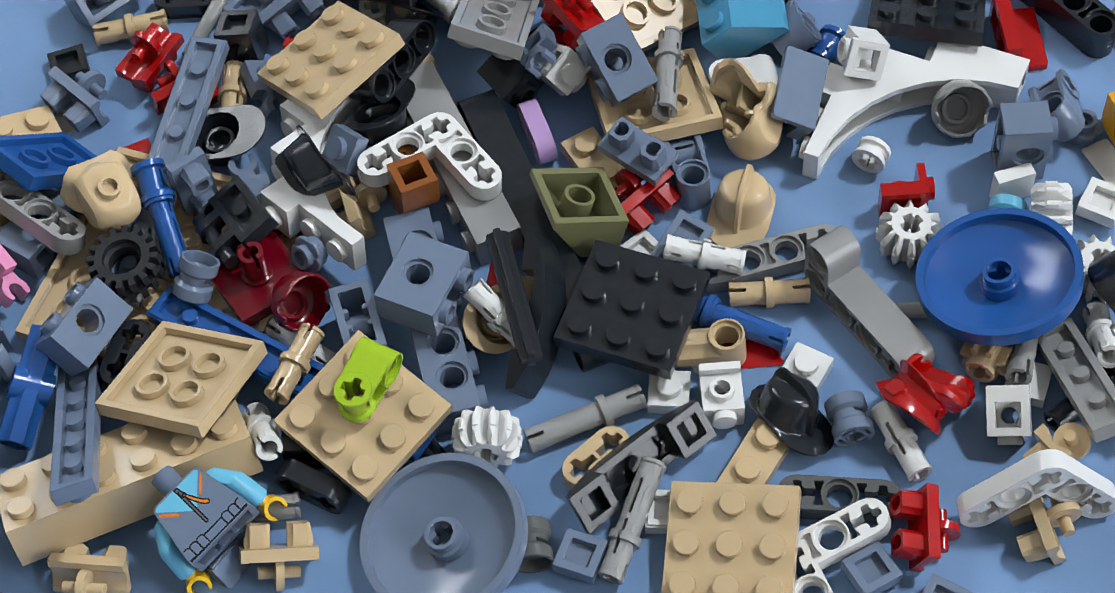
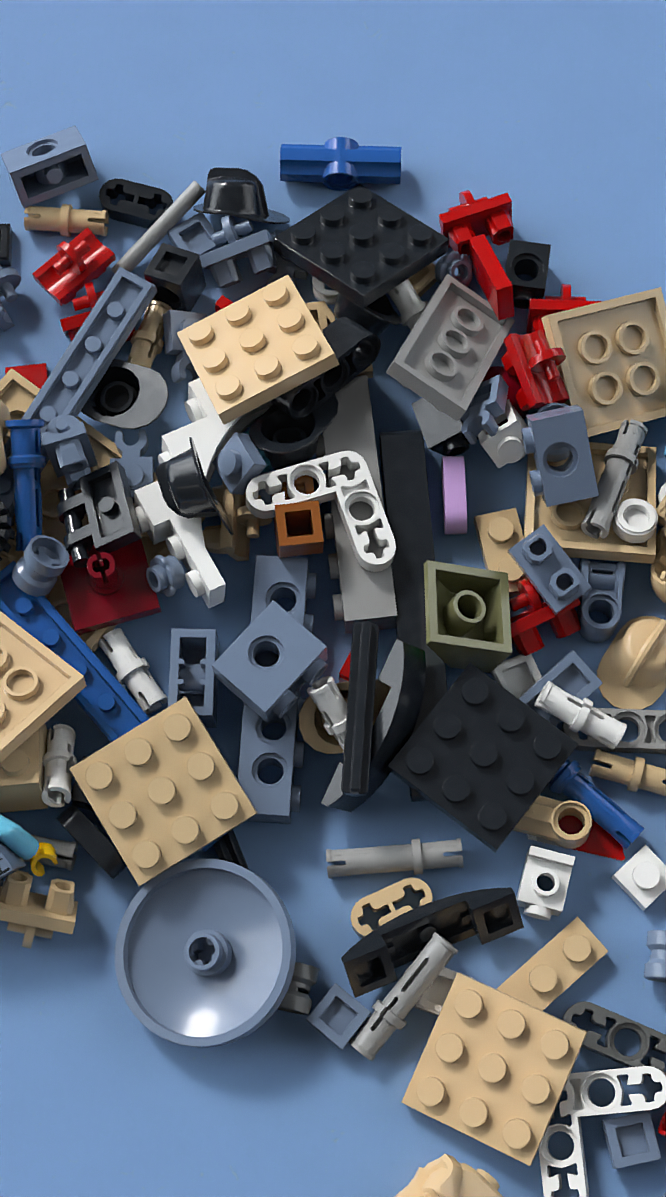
camera: 15 degrees right, 15 degrees up
(294, 363) = (111, 704): tan pin -> none
(299, 300) = (138, 631): dark red hair -> none
(368, 373) = (179, 755): lime piece -> none
(488, 435) = (284, 852): white gear -> none
(668, 394) = (491, 864): white plate -> none
(696, 97) = (635, 520): none -> white tile
(792, 412) = (611, 930): black piece -> none

